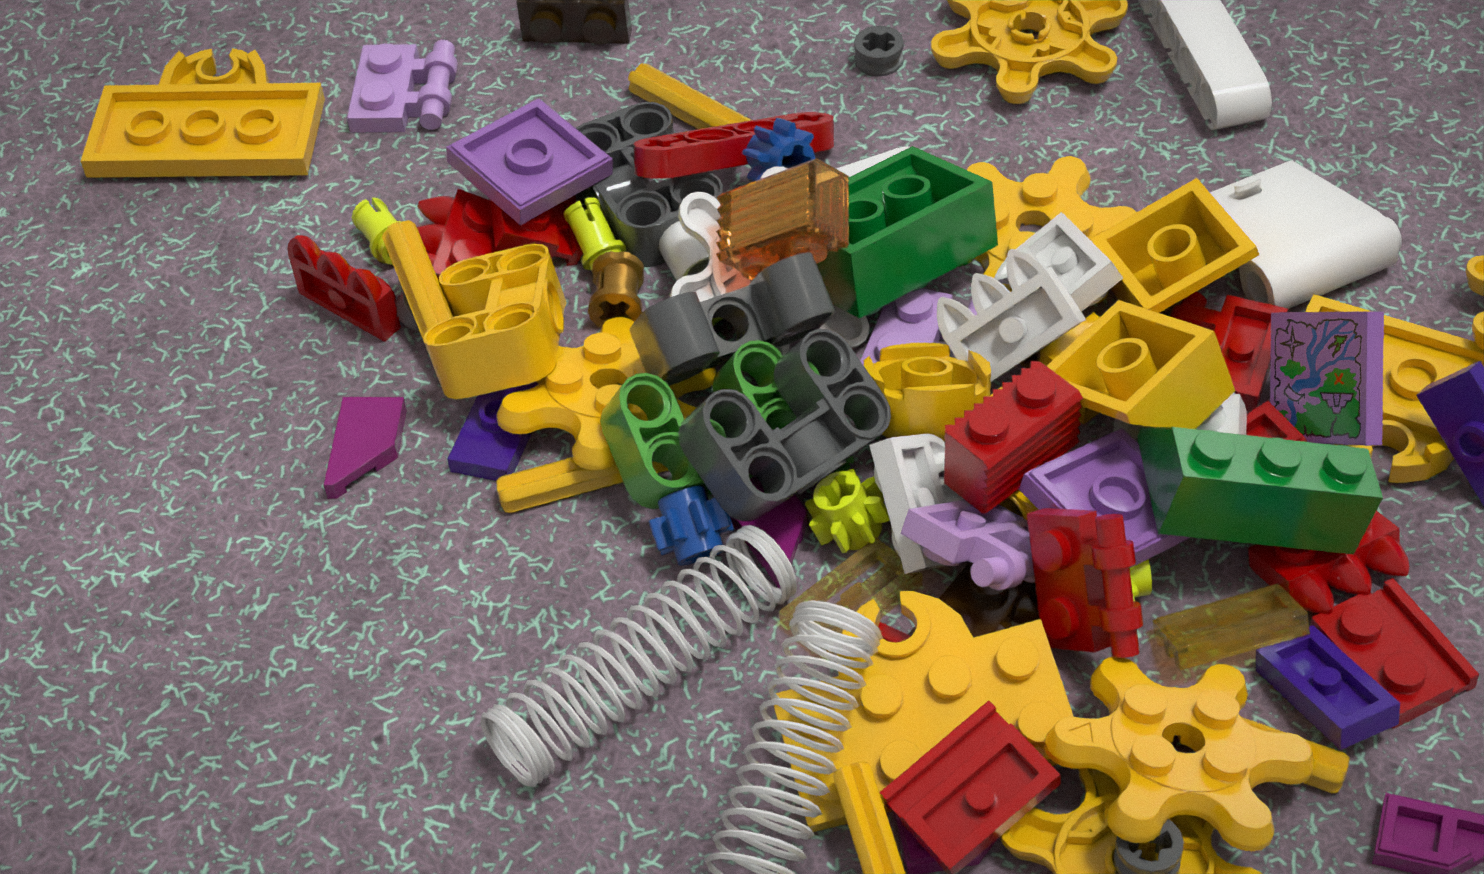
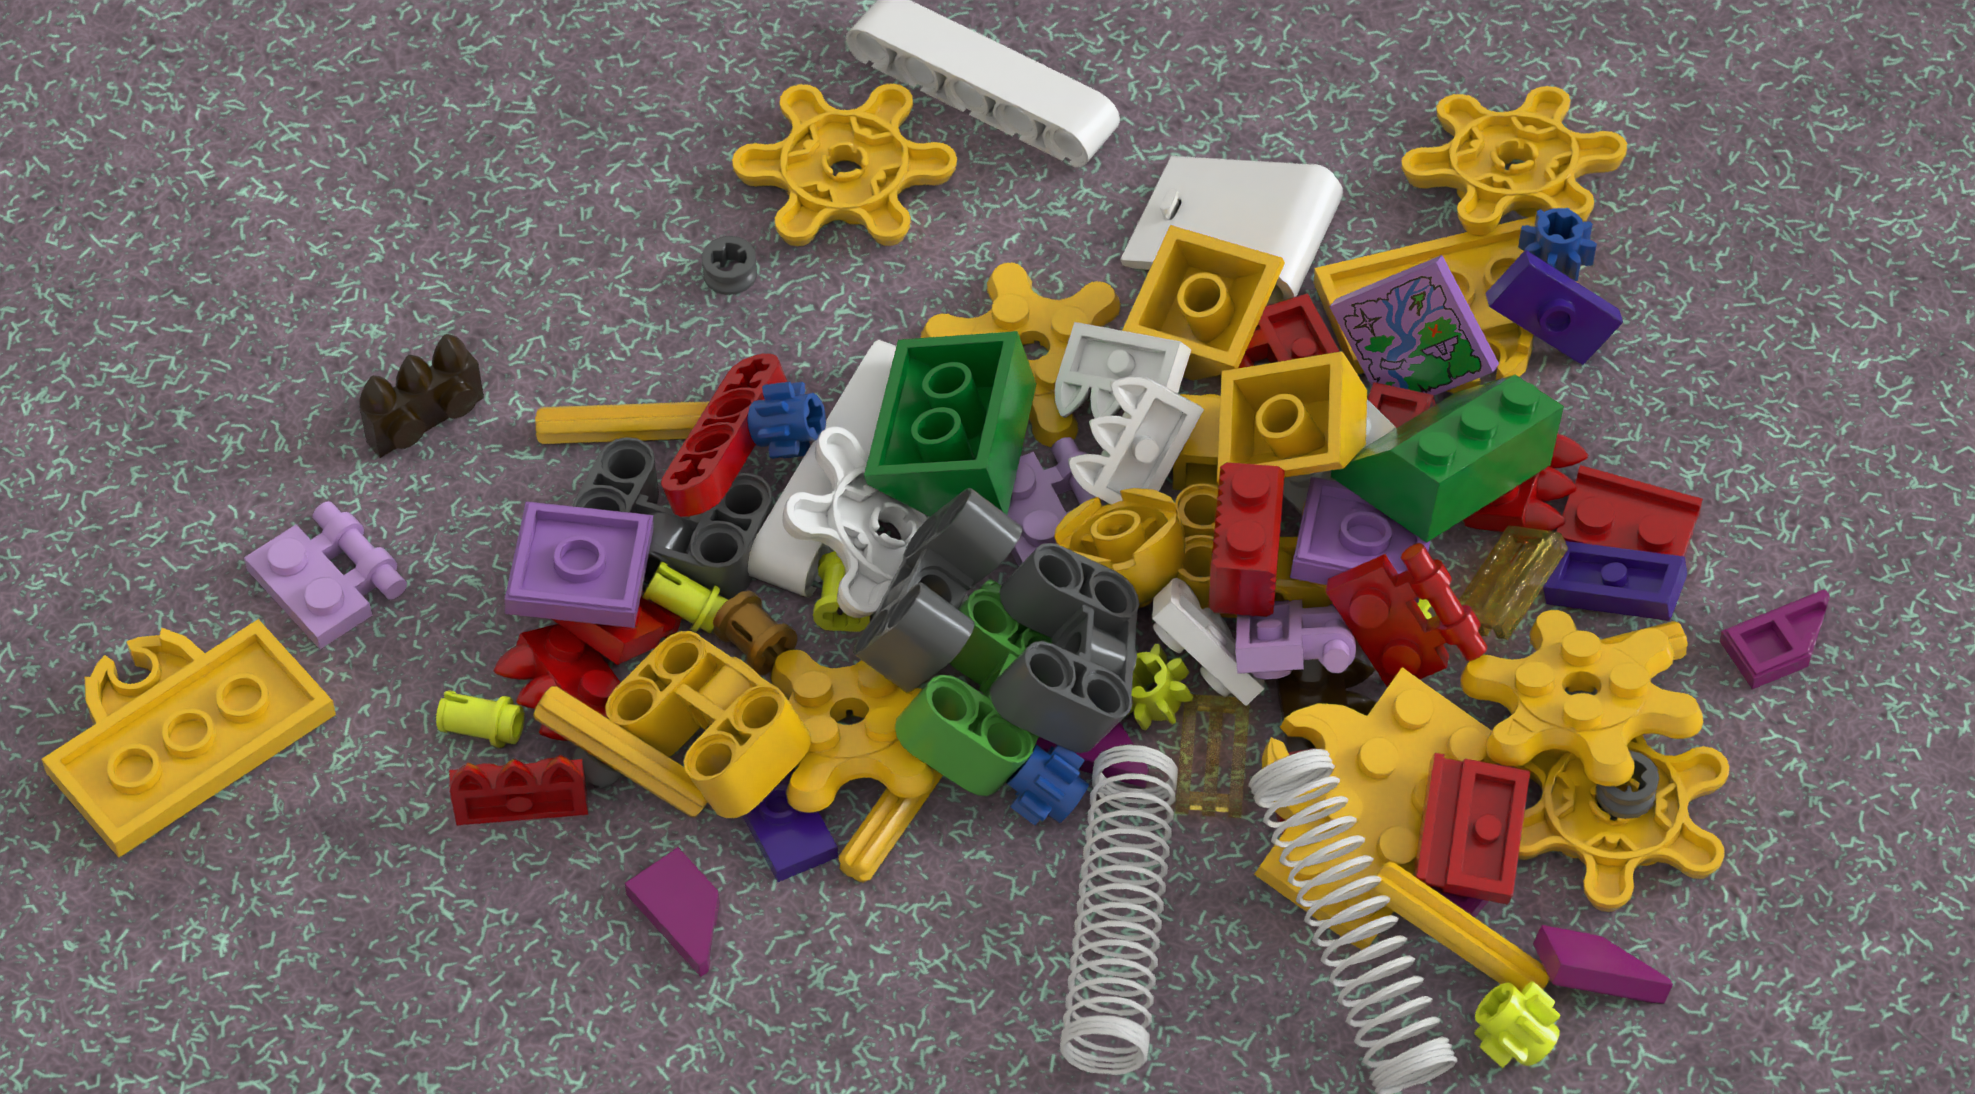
camera: 45 degrees left, 5 degrees up
(784, 217) = (903, 475): clear orange brick -> none

